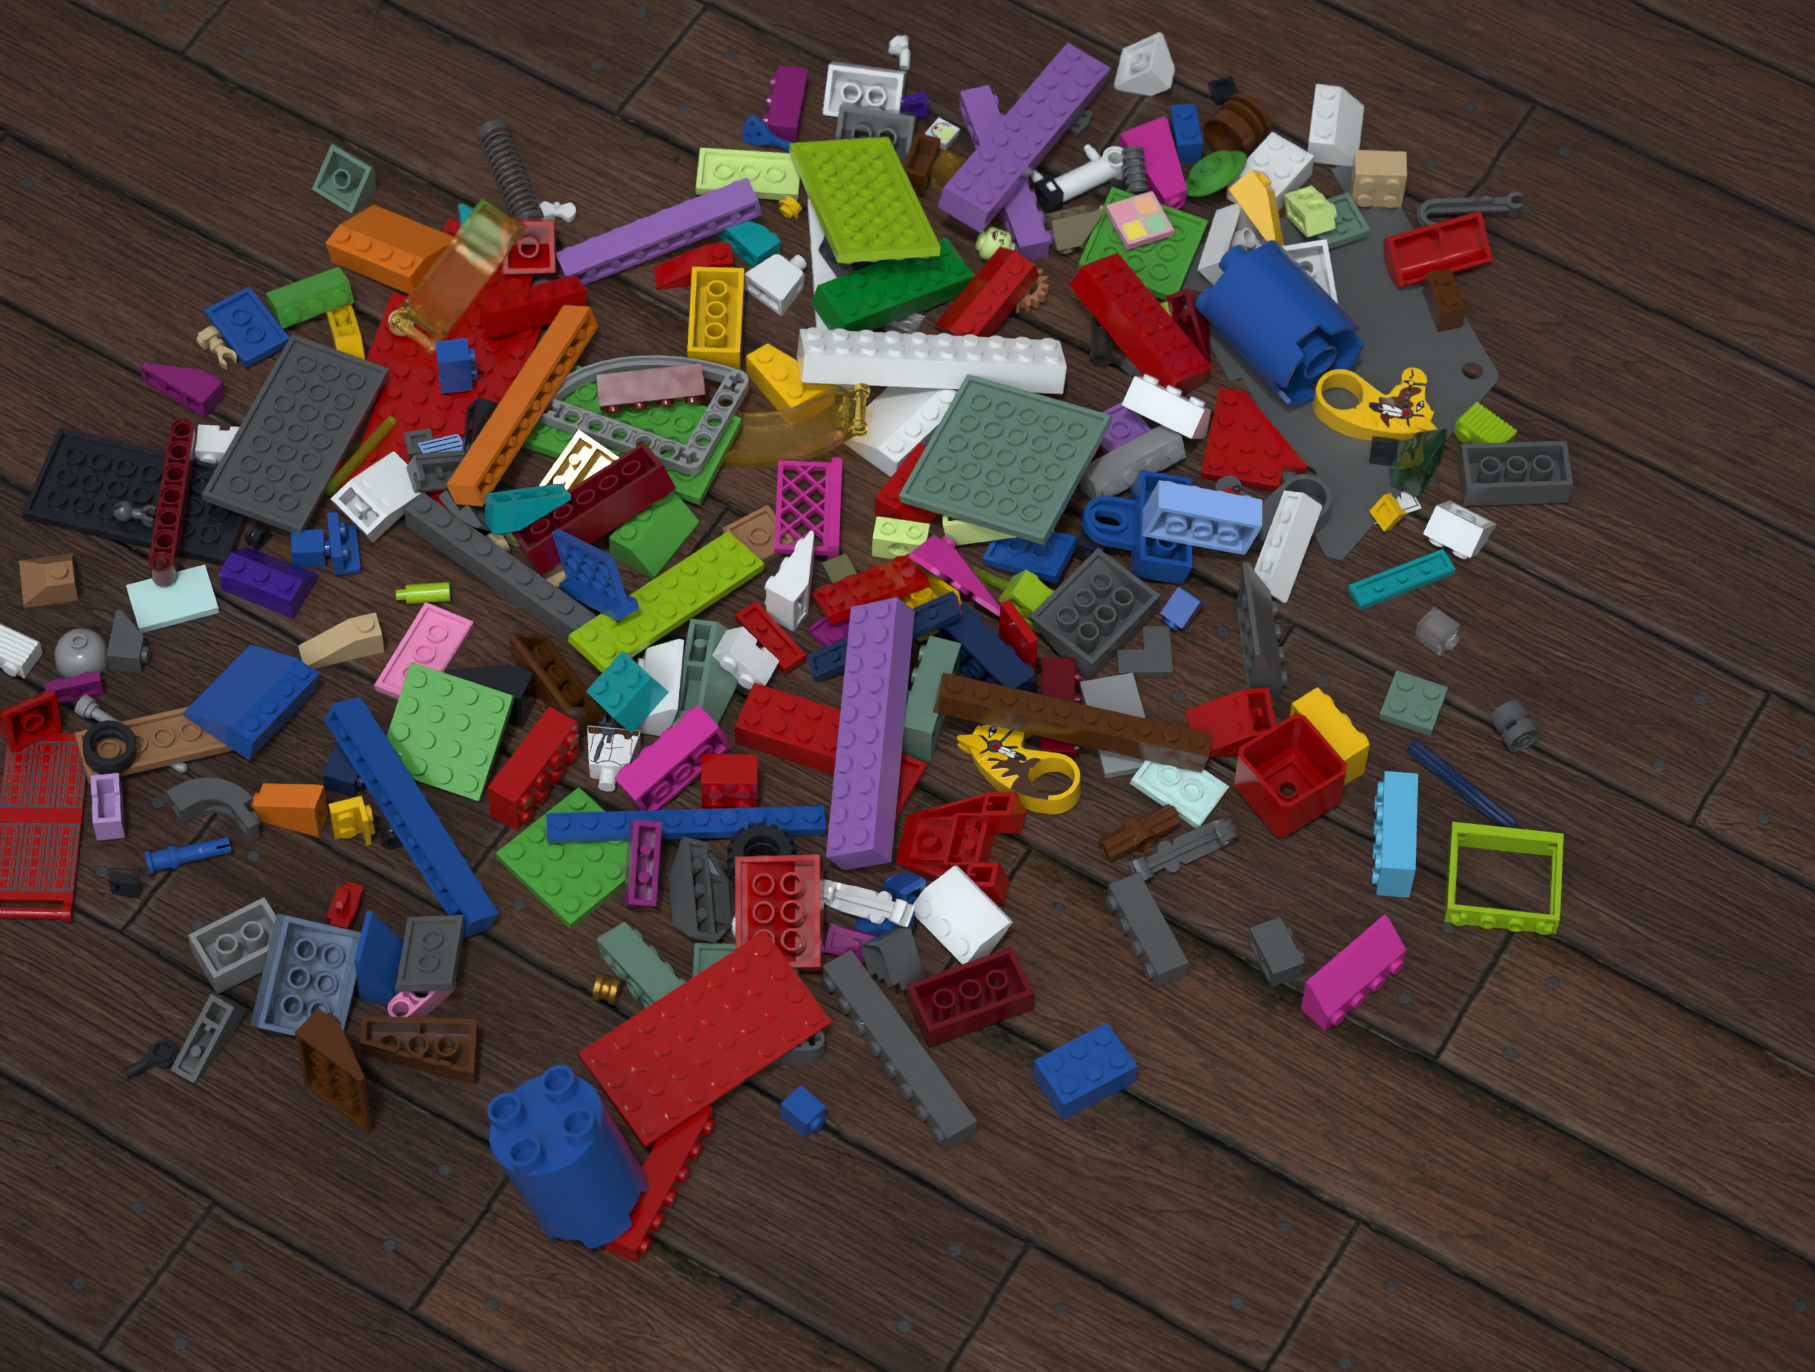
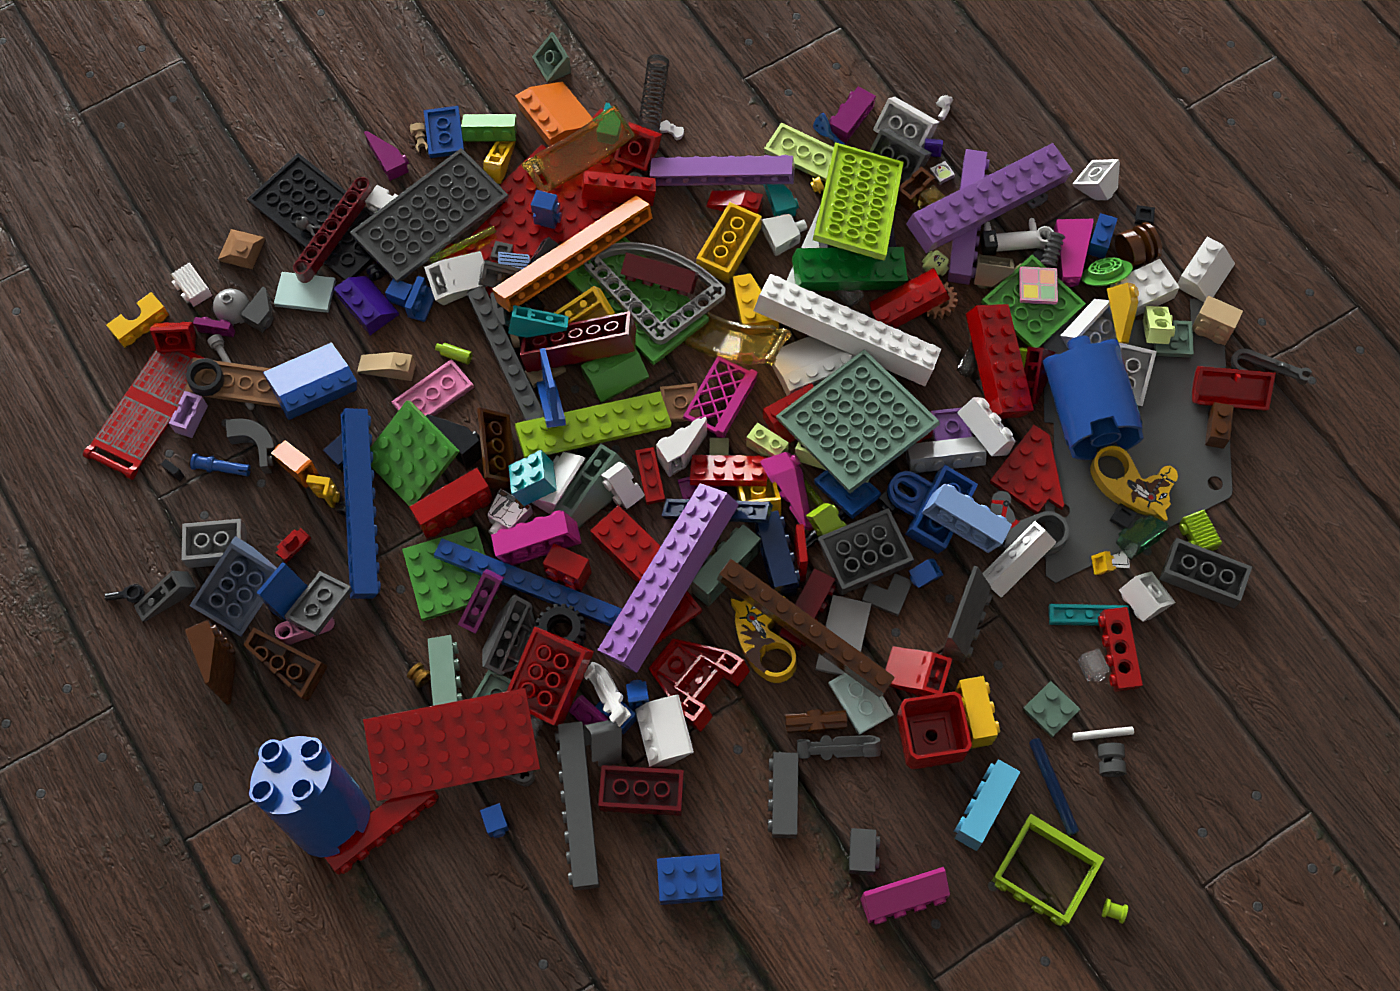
camera: 30 degrees right, 10 degrees up
(1460, 585) = (1120, 618): none -> red brick
(1488, 704) = (1103, 733): none -> white bar
(1605, 889) = (1115, 911): none -> lime bush

